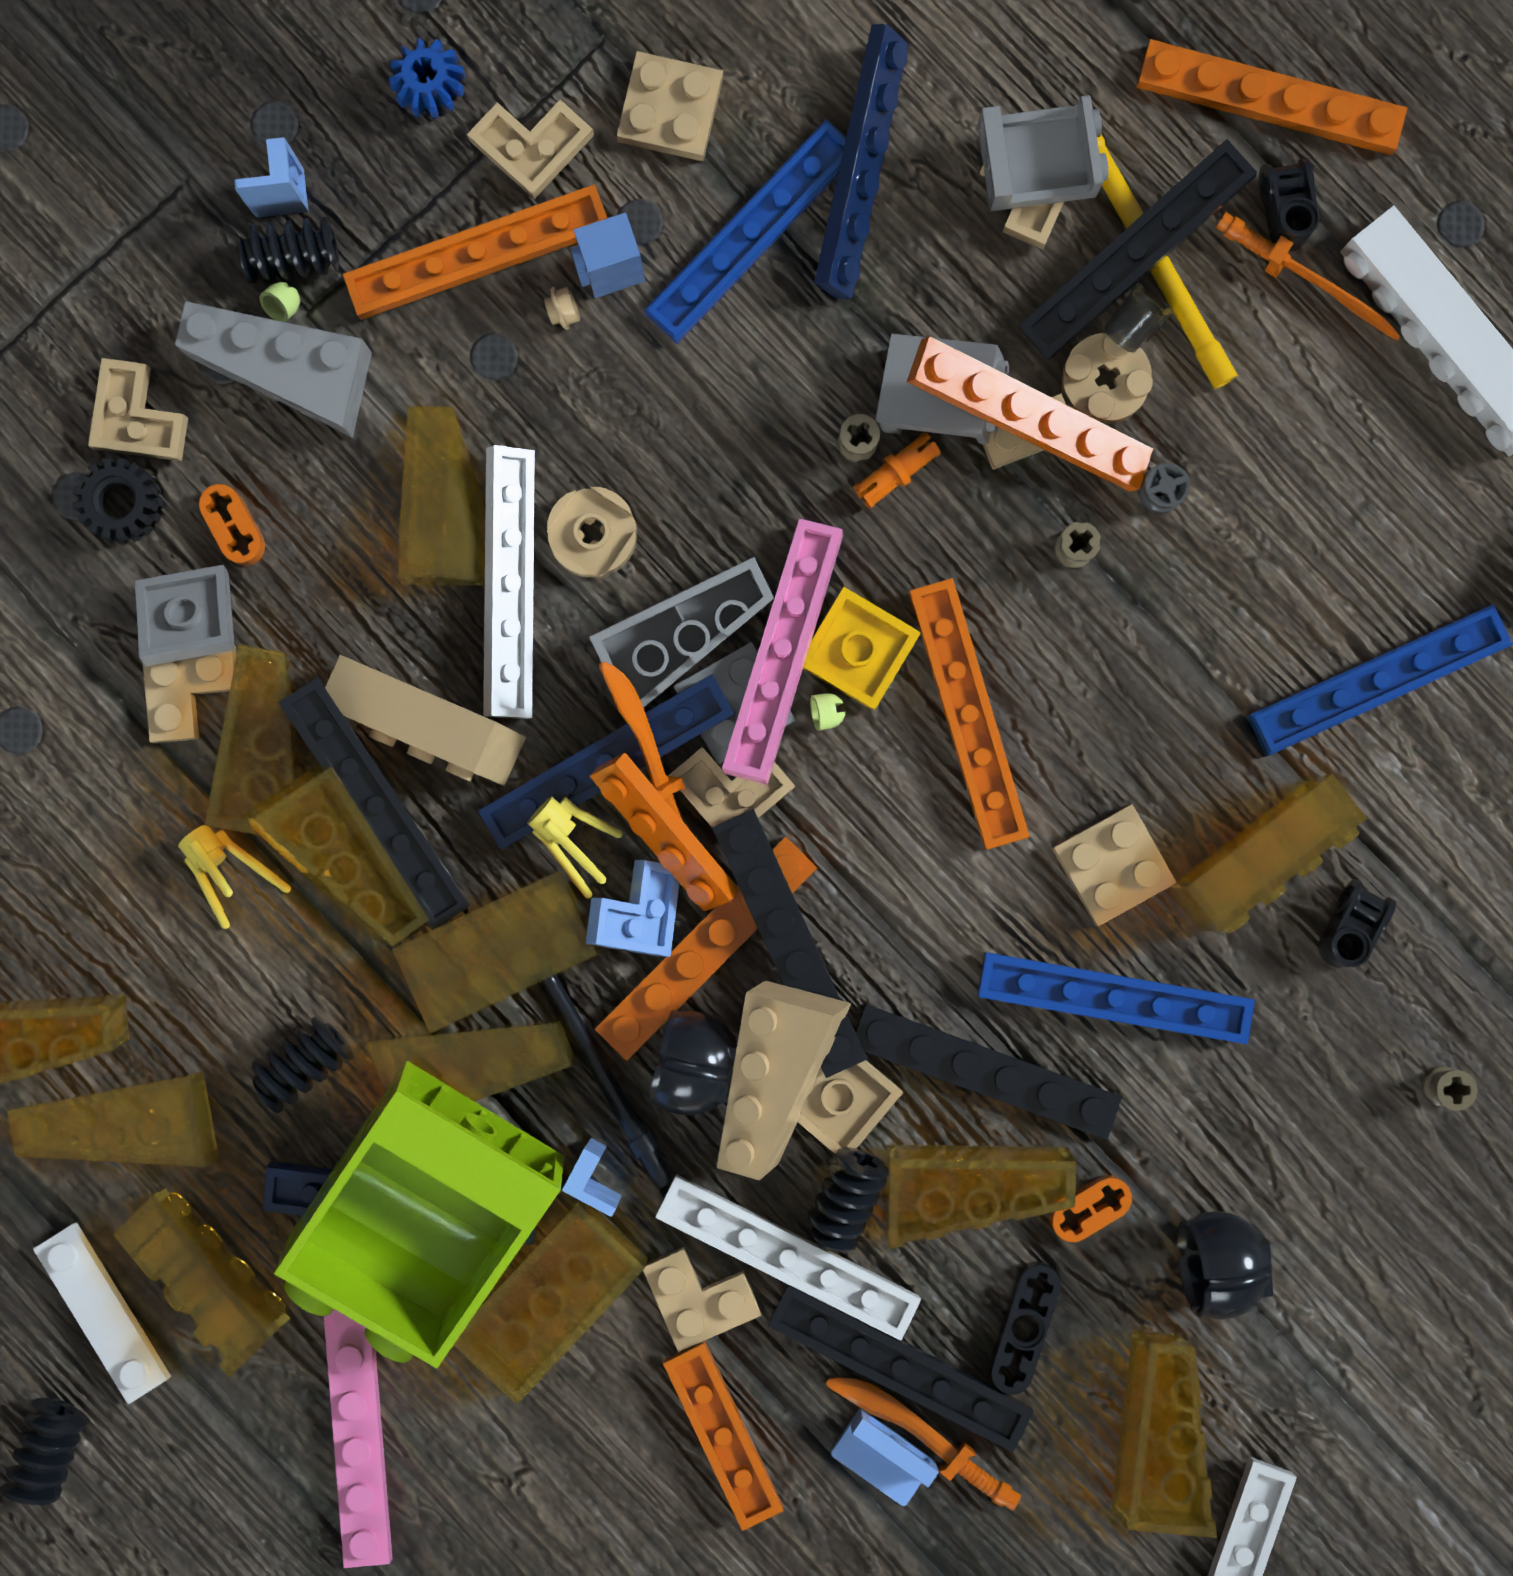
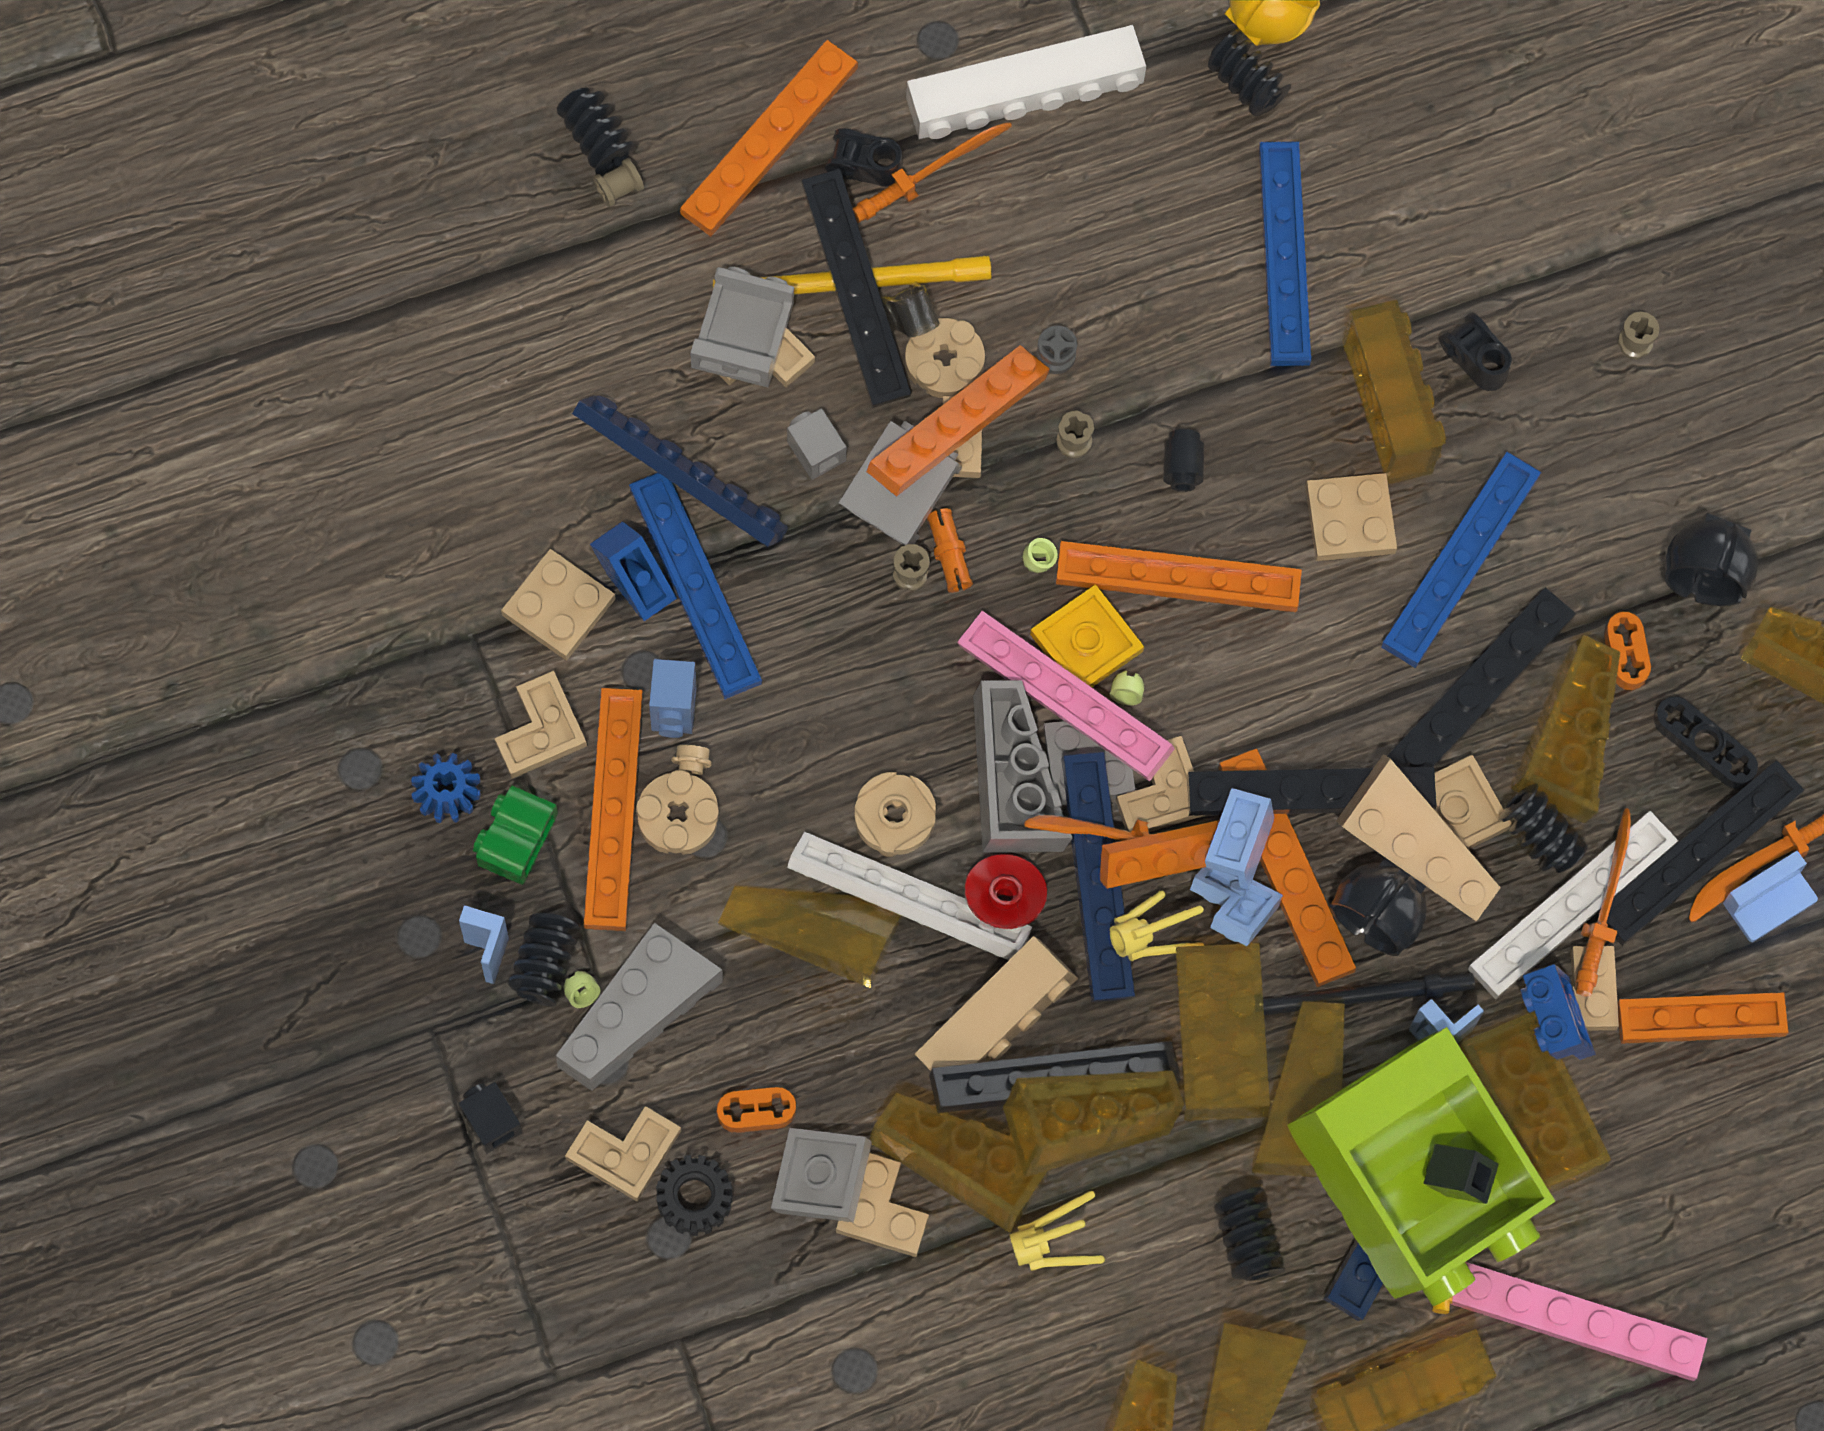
camera: 70 degrees left, 15 degrees down
(112, 268) = (489, 1116): none -> black brick
(407, 167) = (515, 835): none -> green brick
(428, 1258) = (1461, 1173): none -> black brick
(492, 294) = (677, 836): none -> tan plate
(572, 663) = (1009, 877): none -> red dish
(644, 1294) = (1558, 1014): none -> blue plate
(701, 890) = (1241, 836): none -> light blue panel
(734, 161) = (633, 570): none -> blue slope
(764, 1296) = (1599, 932): none -> orange sword
(938, 560) = (1037, 549): none -> yellowish green hinge
(951, 285) = (816, 443): none -> light grey brick
(1098, 668) = (1183, 460): none -> black brick

